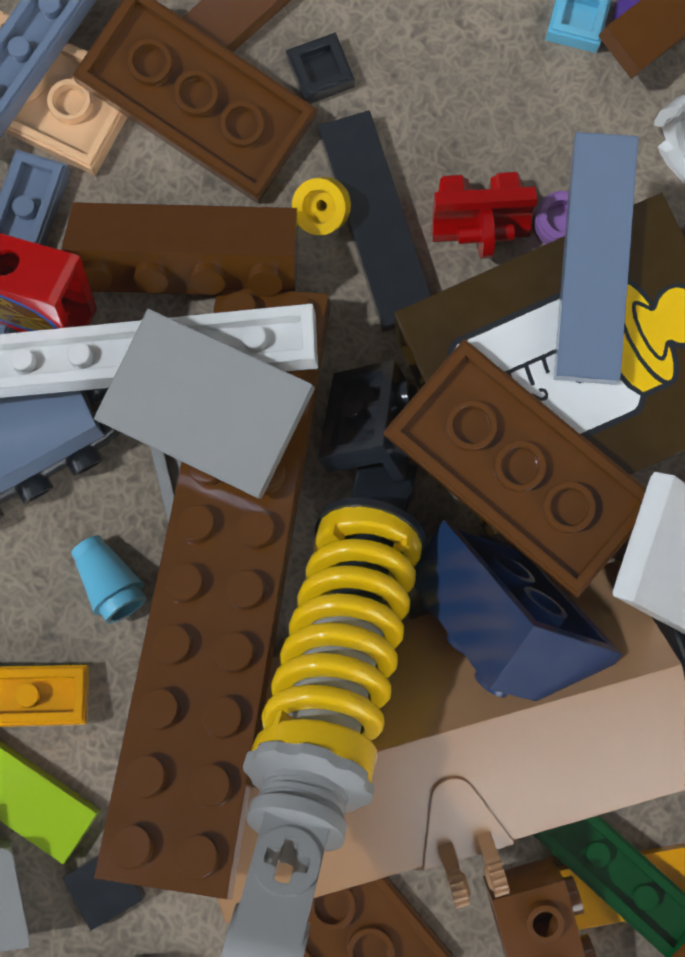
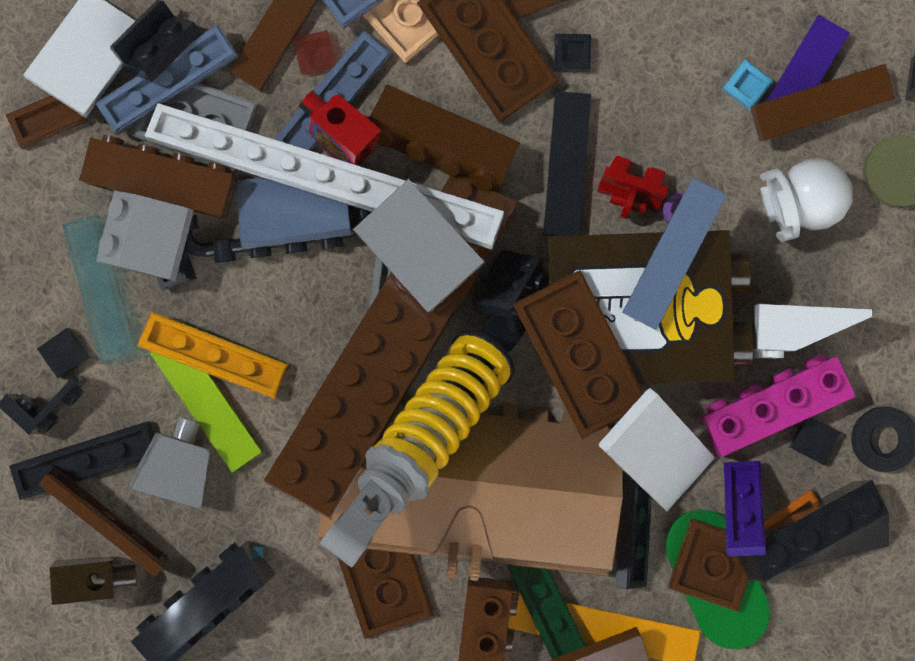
camera: 20 degrees right, 5 degrees up
(99, 898) = (249, 495): black tile -> none
(108, 581) = (319, 320): medium azure cone -> none
(311, 207) = (536, 144): yellow tile -> none
(508, 616) = (541, 433): dark blue slope -> none

